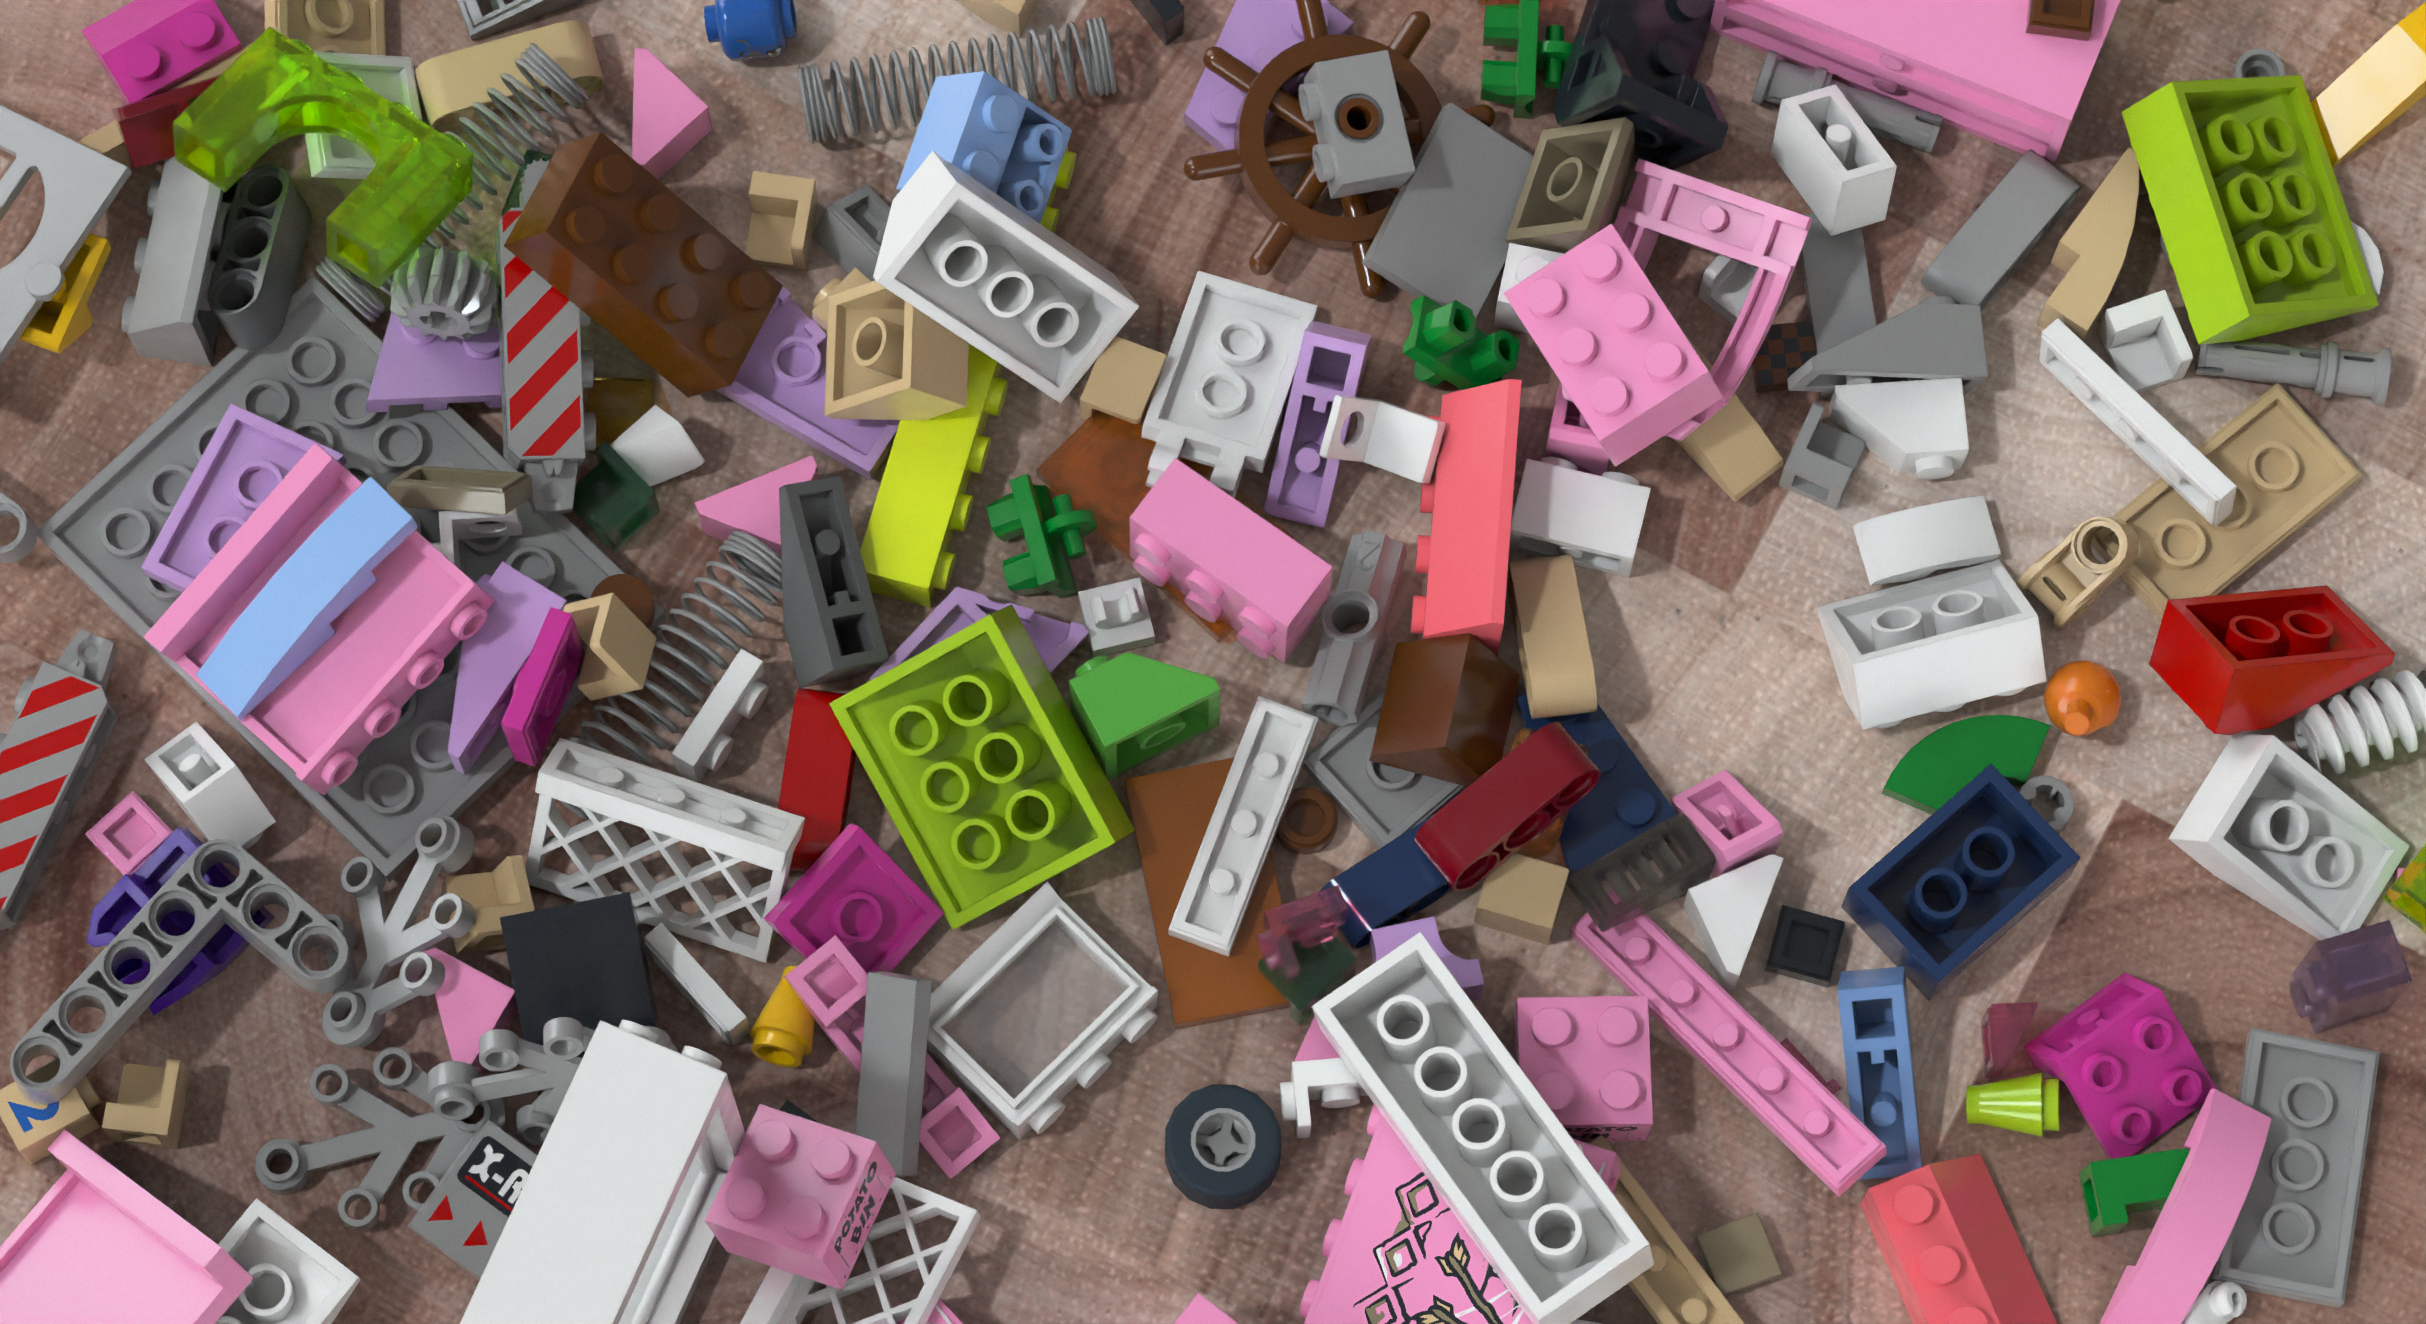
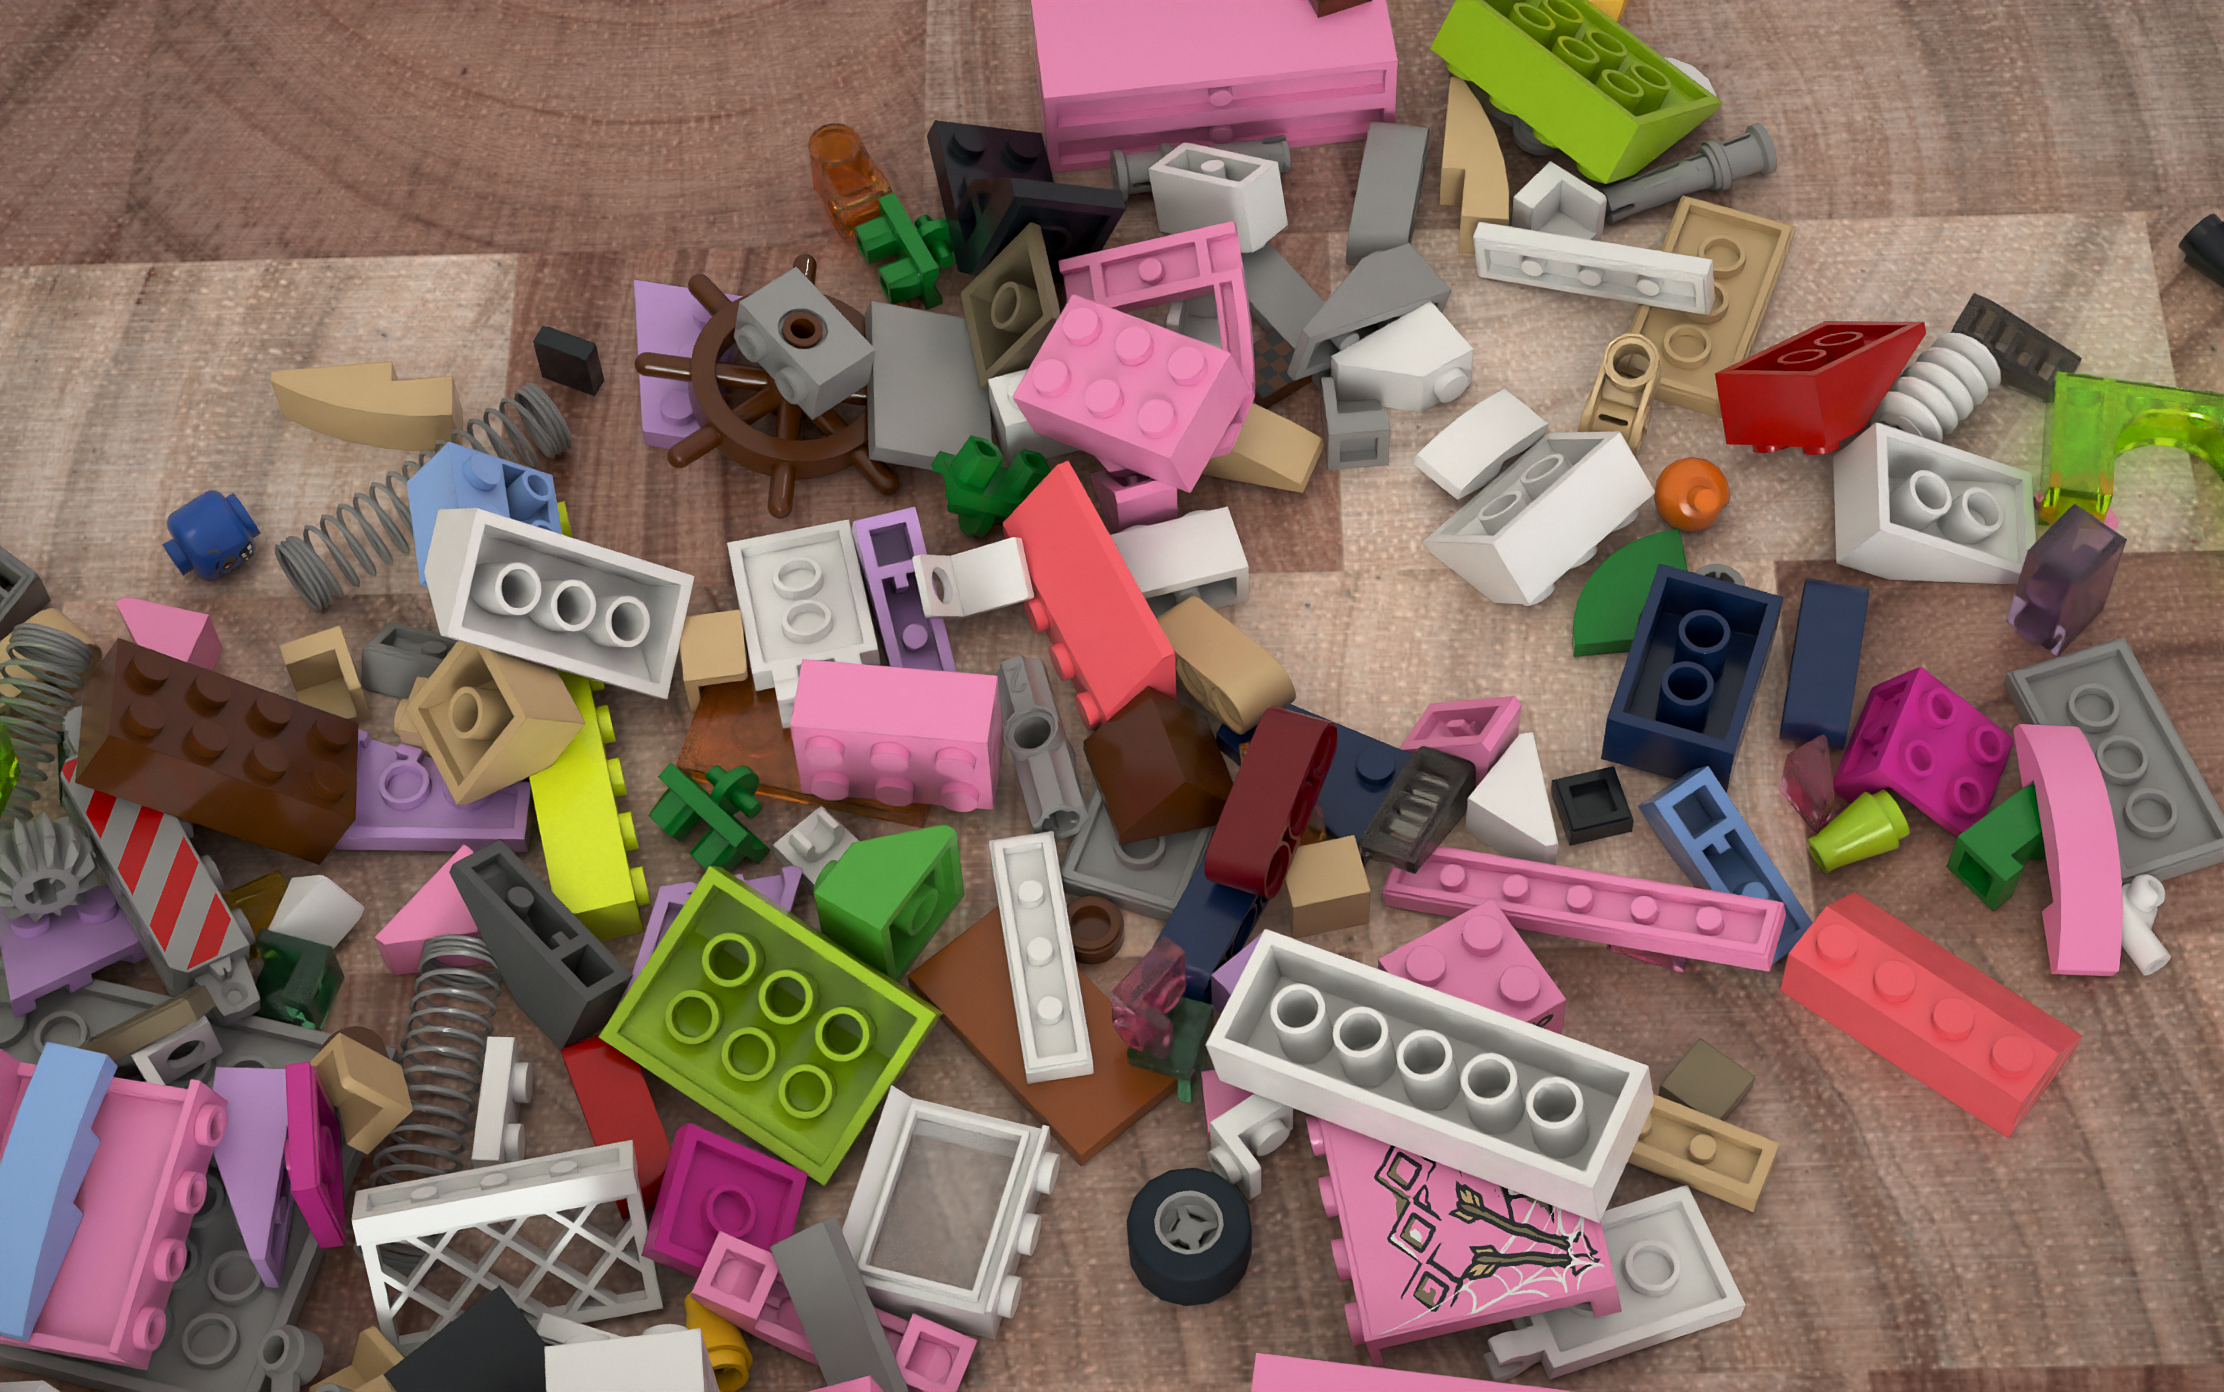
camera: 25 degrees left, 15 degrees down
(2092, 928) = (1824, 662): none -> dark blue beam

